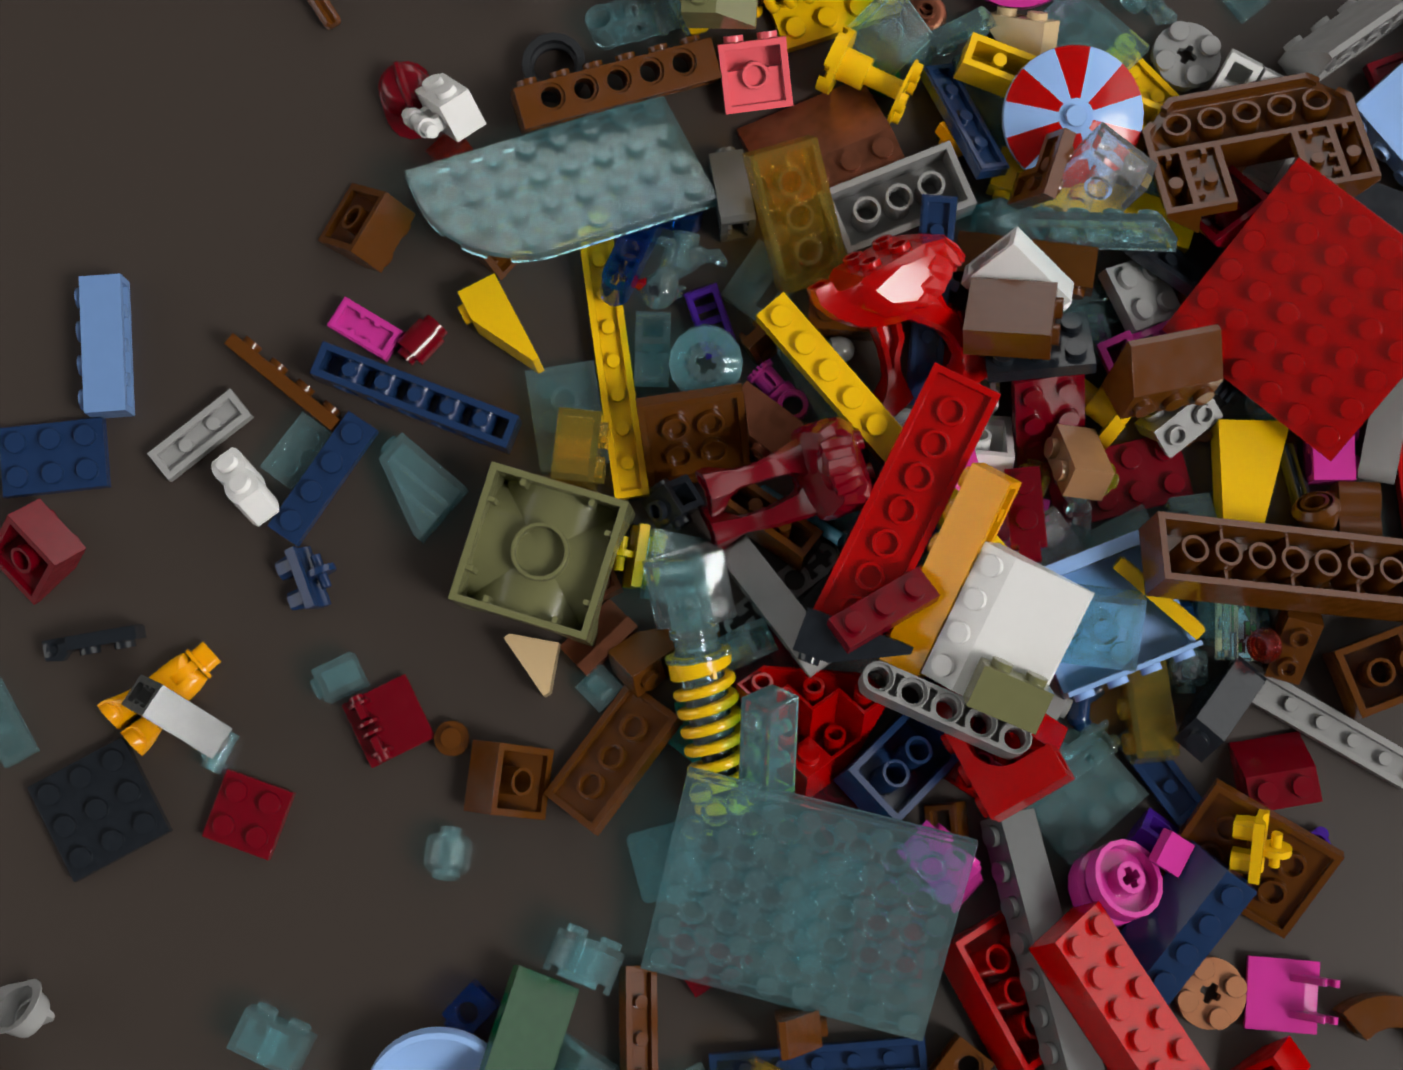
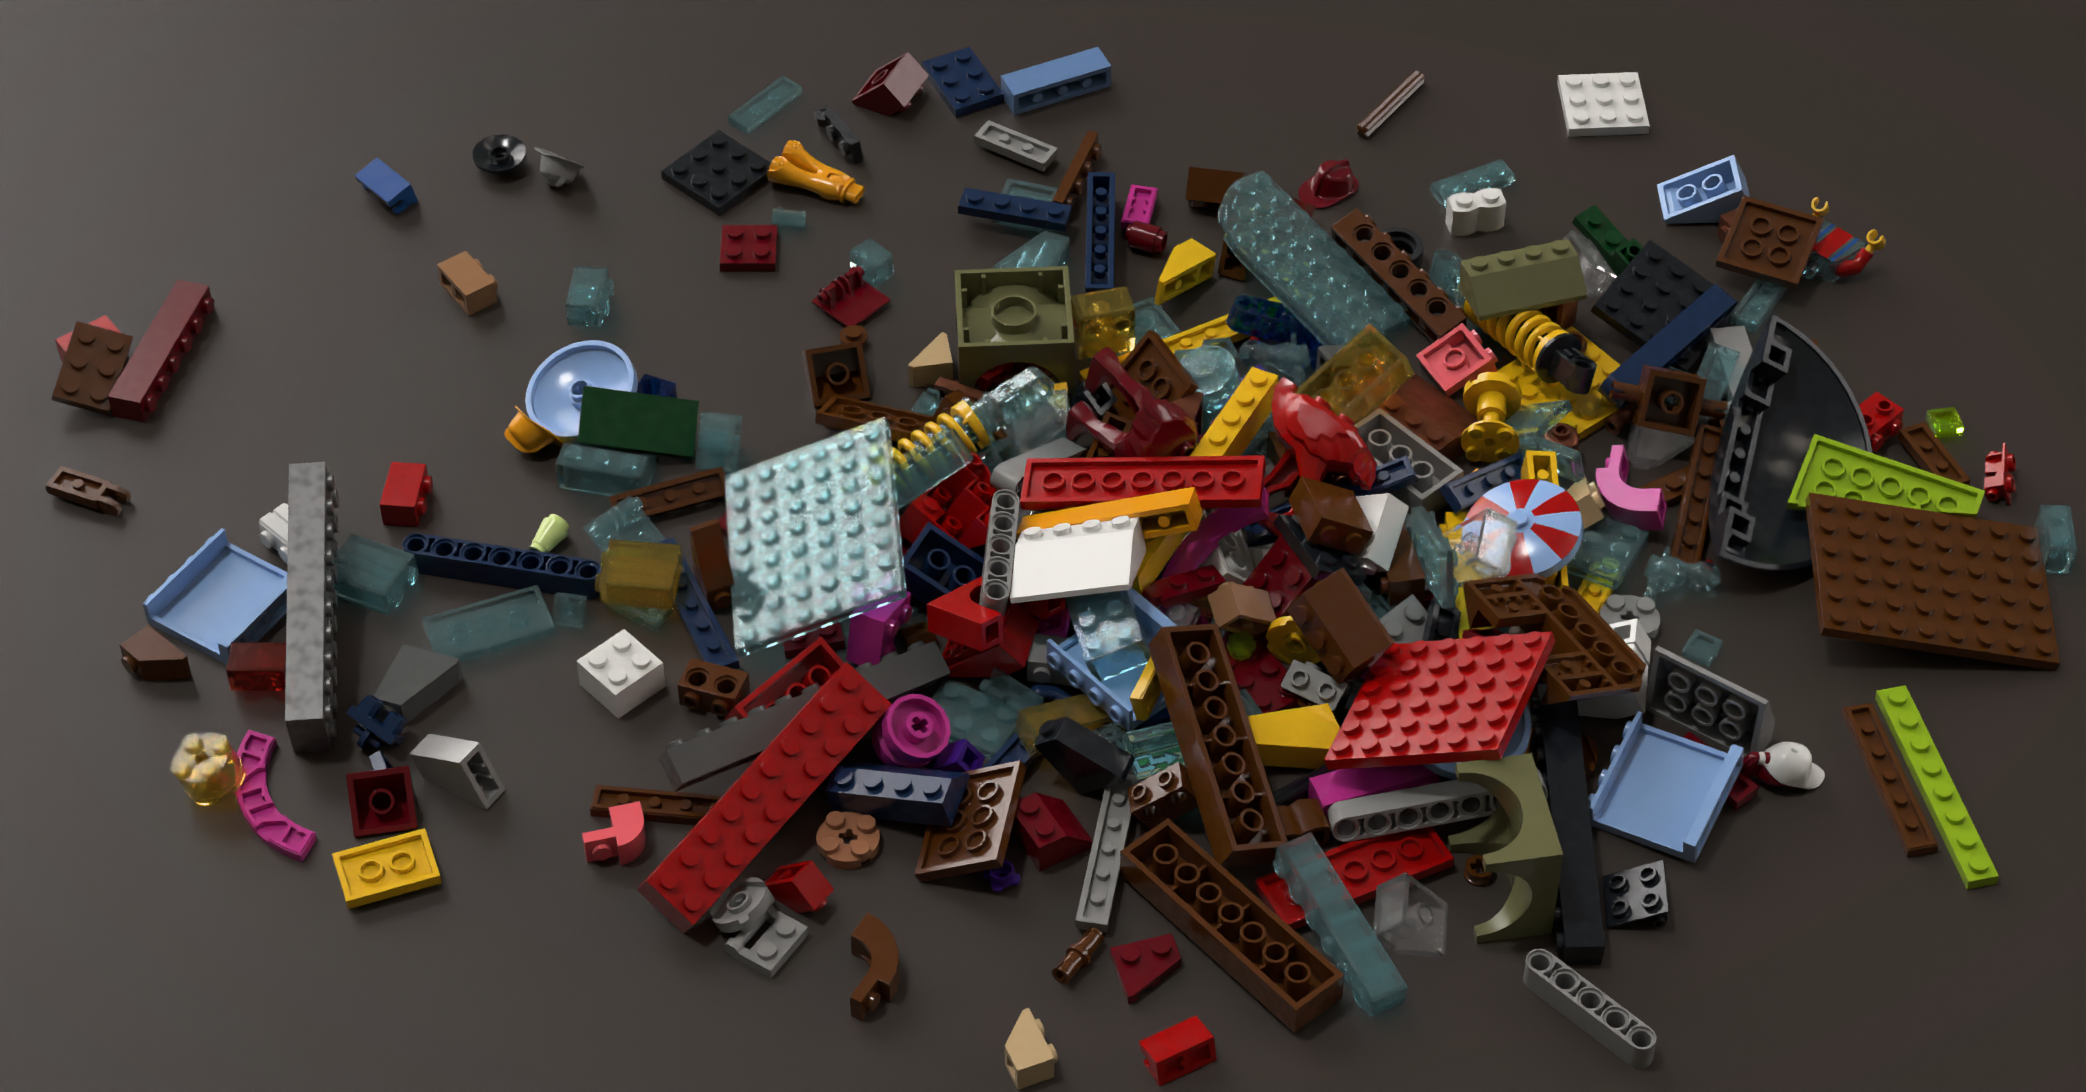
camera: 70 degrees right, 35 degrees down
(177, 716) = (803, 173): slope -> none
(245, 486) = (988, 167): white brick -> none
(309, 575) = (939, 225): dark blue hips -> none
(445, 108) = (1325, 190): white brick -> none
(448, 854) = (765, 353): clear light blue head -> none
(818, 643) = (1023, 469): black slope -> none
(882, 610) = (1057, 475): dark red plate -> none
(1009, 694) = (1026, 563): olive brick -> none
(1044, 180) = (1452, 512): reddish brown plate -> none
(1171, 852) = (951, 754): dark pink tile -> none
(1252, 860) = (980, 798): yellow hips -> none
(1257, 646) = (1149, 764): clear red plate -> none
(1284, 995) = (866, 886): dark pink plate -> none
(1317, 510) = (1282, 784): reddish brown cone -> none

